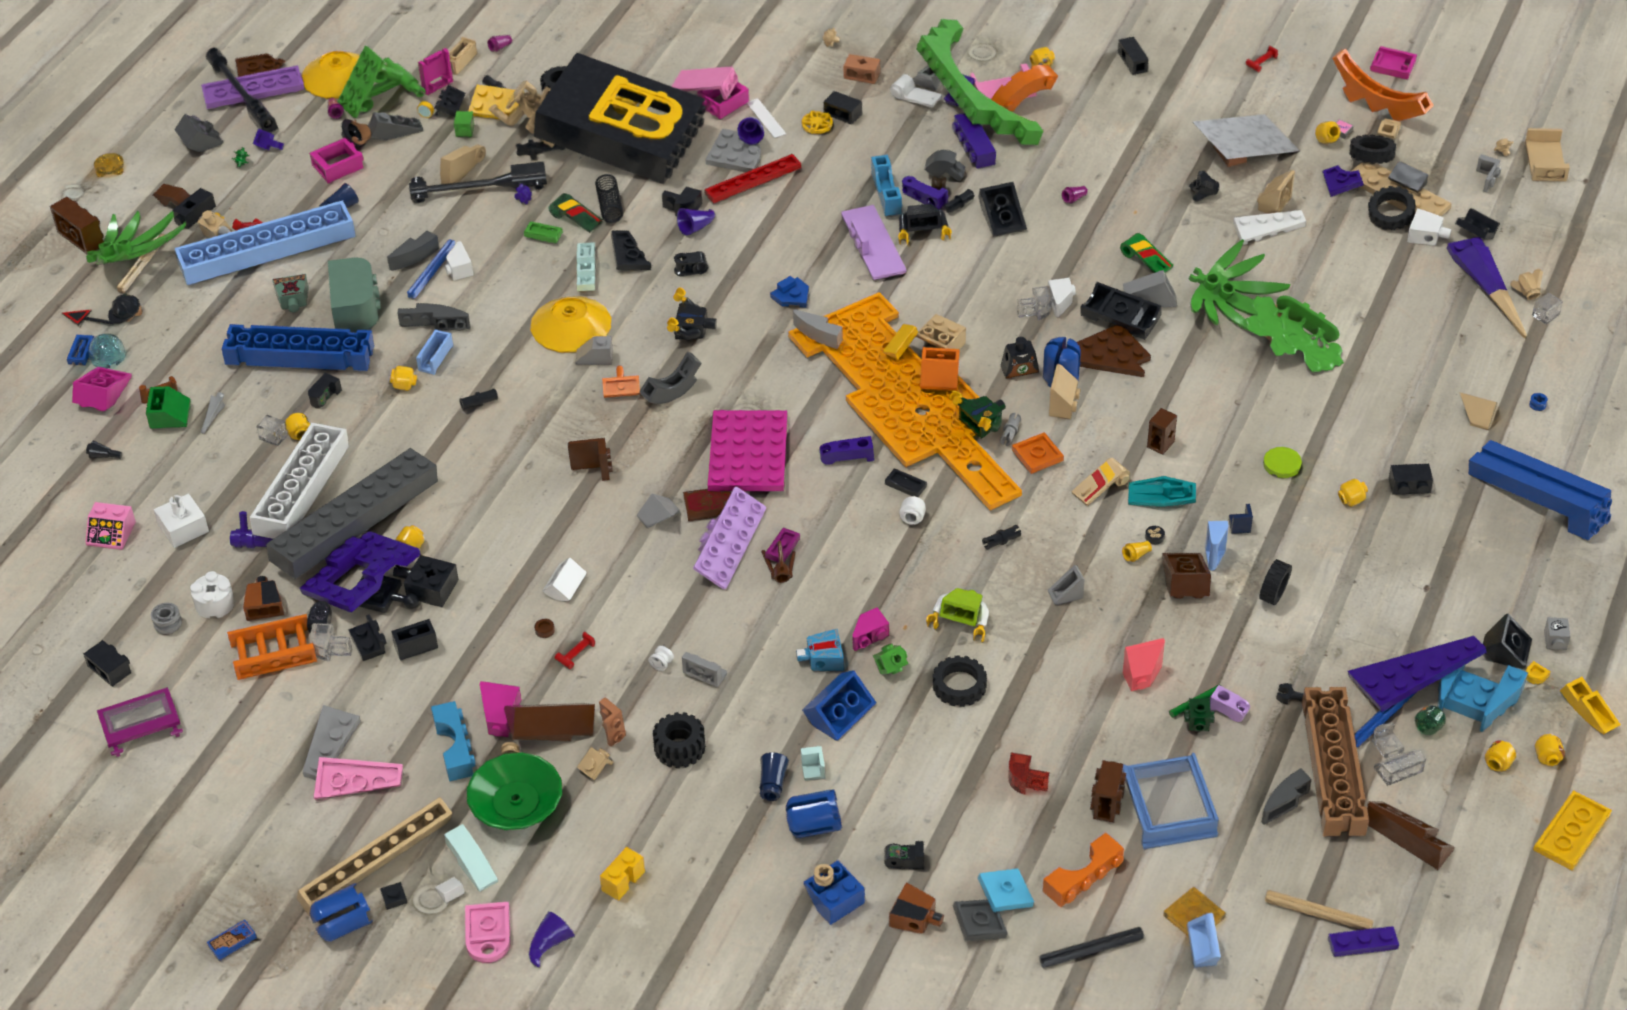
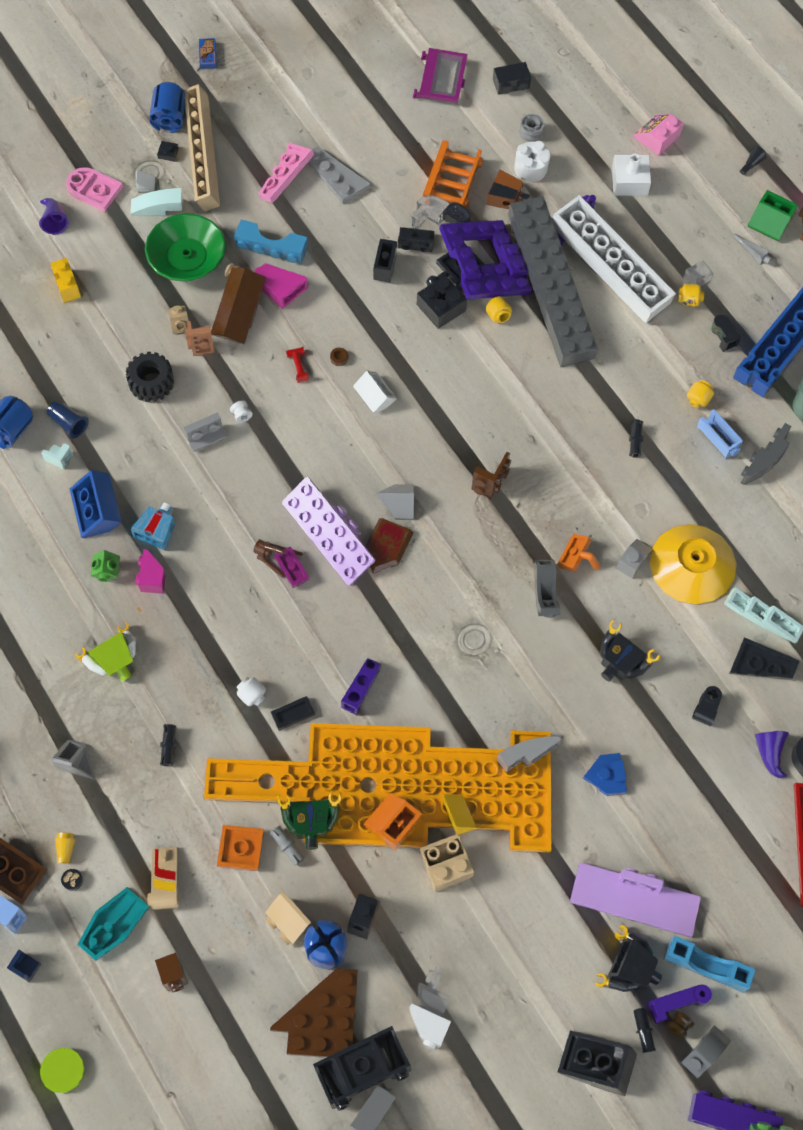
camera: 120 degrees right, 20 degrees up
(748, 450) = (423, 608): dark pink plate -> none
(959, 697) = (40, 590): black tyre -> none

